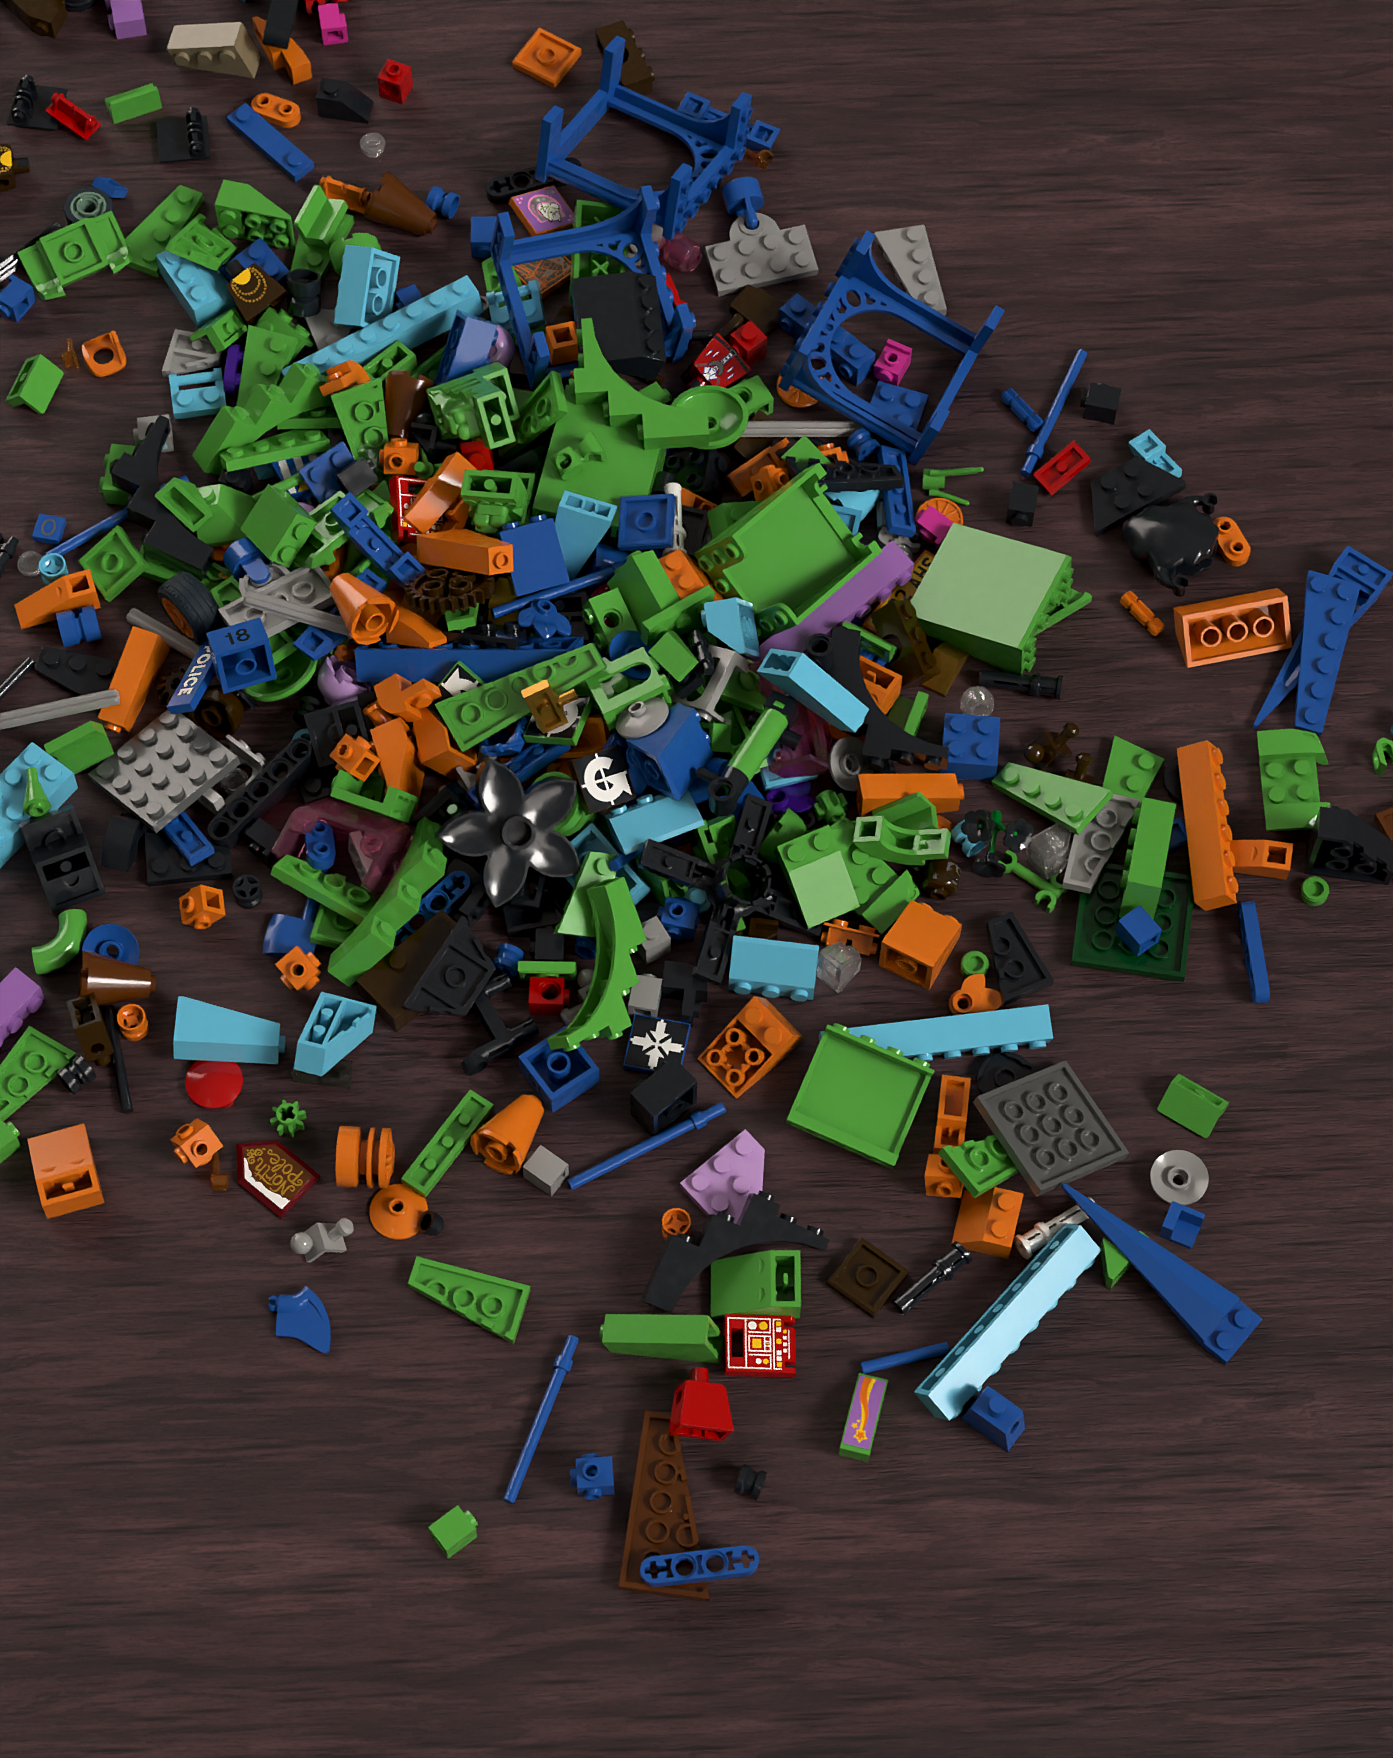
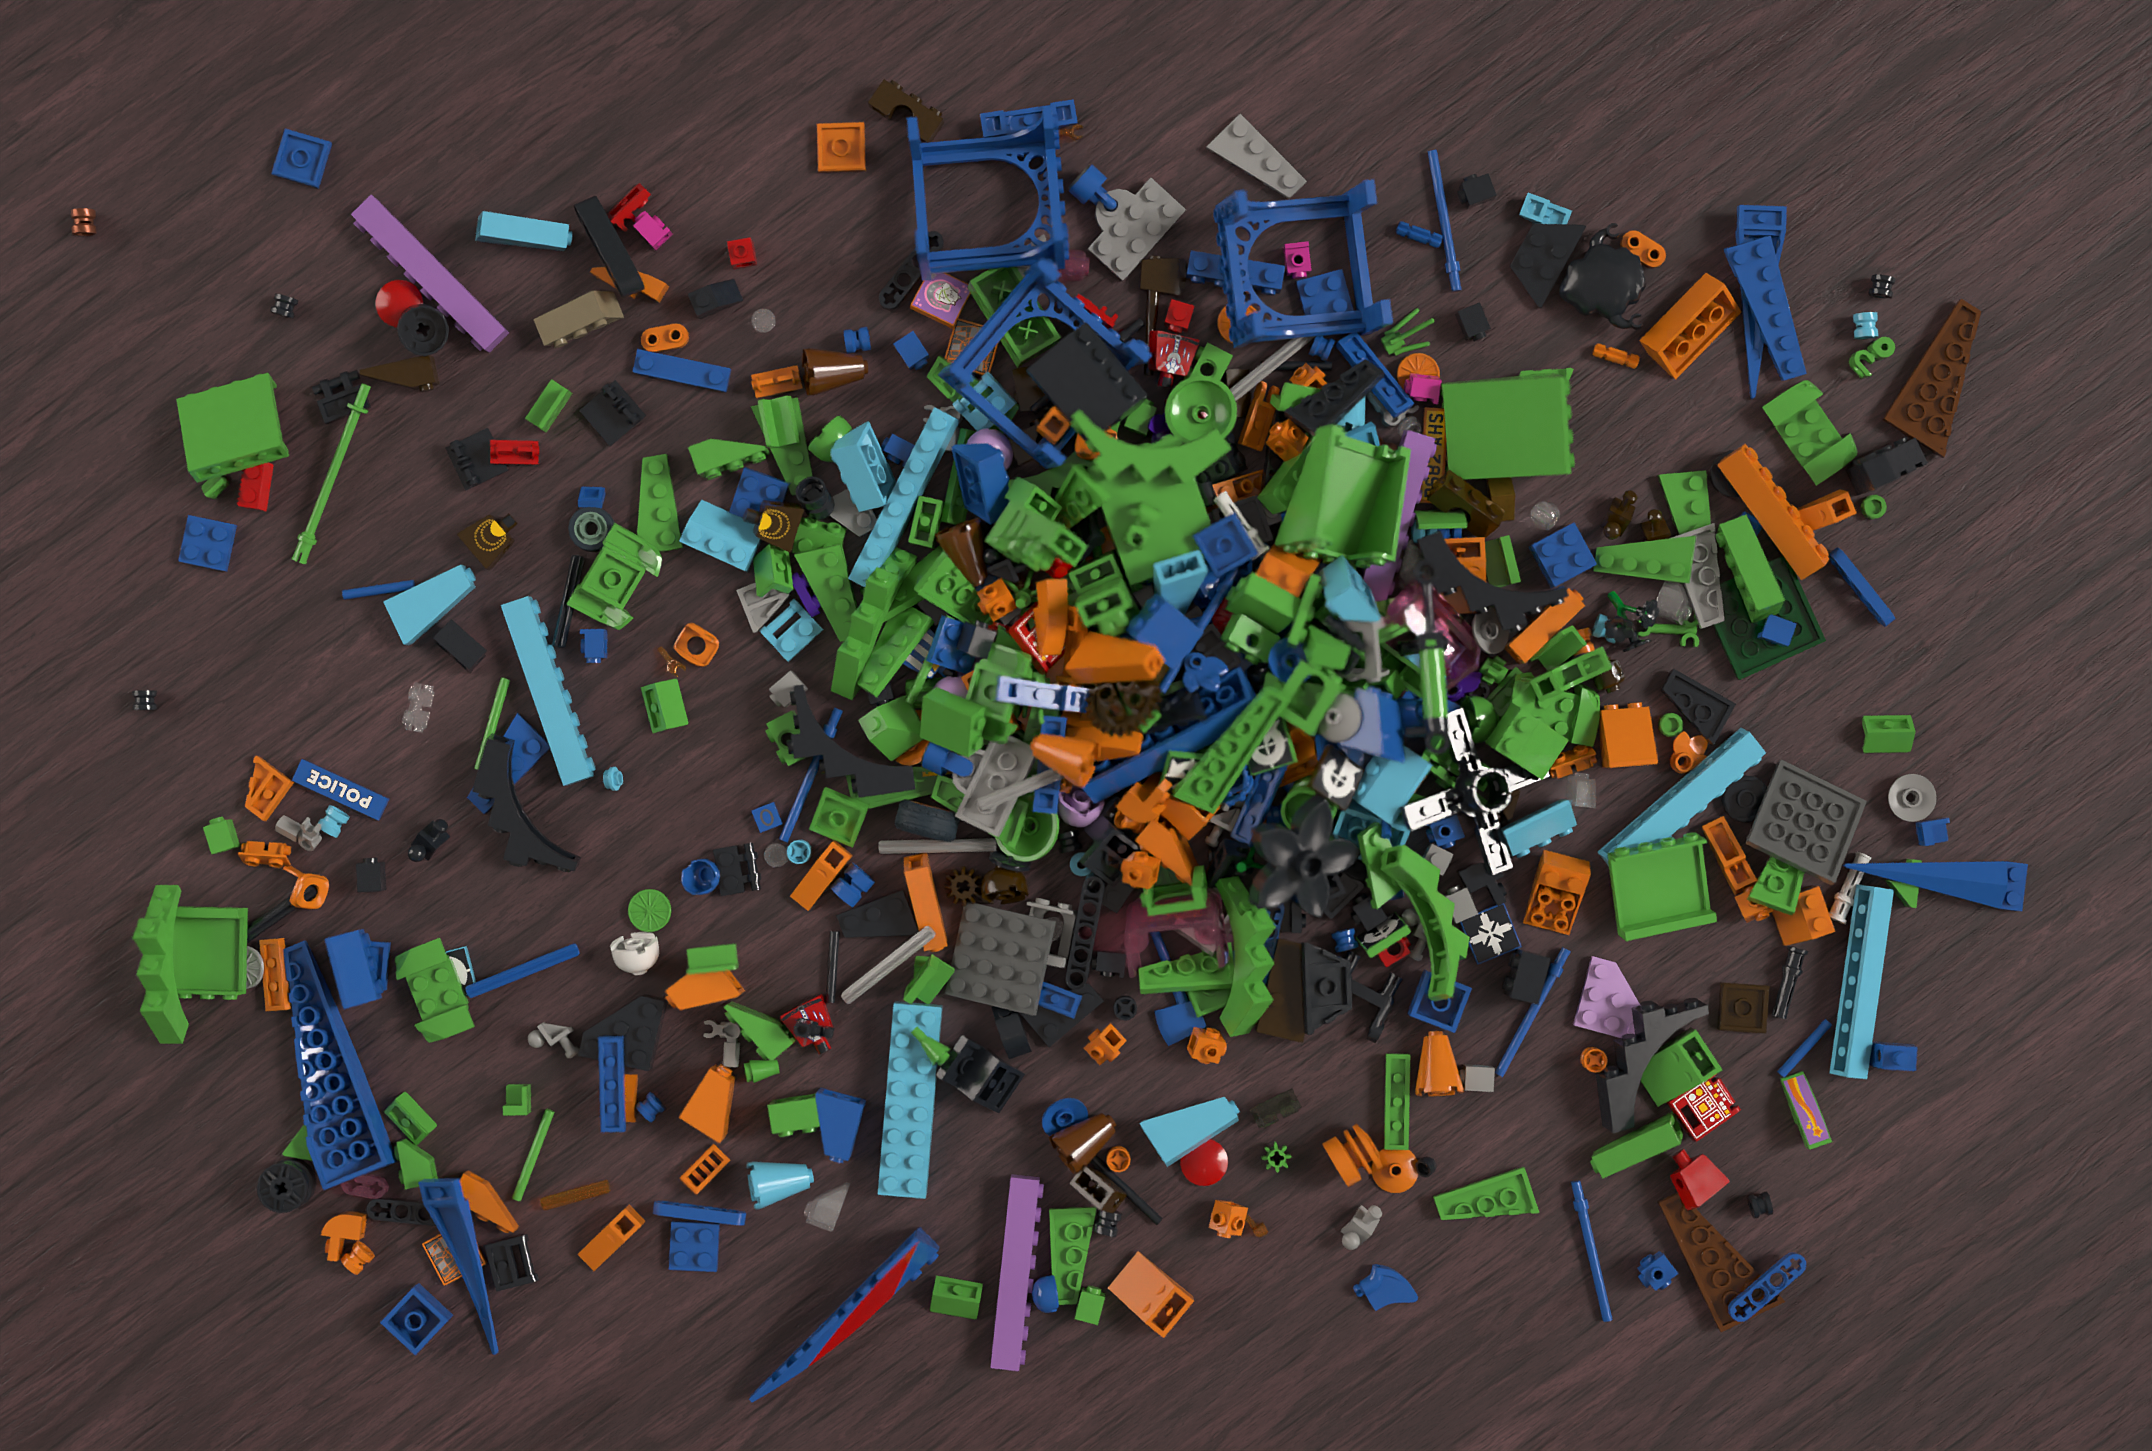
camera: 30 degrees left, 25 degrees up
(64, 945) = (1028, 1134): bright green cylinder -> none
(185, 503) = (867, 745): bright green slope -> none
(194, 682) = (976, 872): blue tile -> none
(201, 244) = (706, 506): bright green wing -> none
(241, 655) = (1006, 850): blue brick -> none
(273, 1174) = (1292, 1200): tile -> none
(320, 846) = (1156, 942): blue plate -> none
(332, 1032) = (1266, 1082): medium azure wedge -> none
(344, 377) = (912, 564): orange brick -> none
(453, 1531) = (1588, 1366): bright green brick -> none
(547, 705) = (1262, 753): pearl gold plate -> none
(813, 688) = (1447, 615): medium azure slope -> none
(1034, 684) = (1581, 467): black pin -> none
(1062, 468) = (1484, 270): red plate -> none

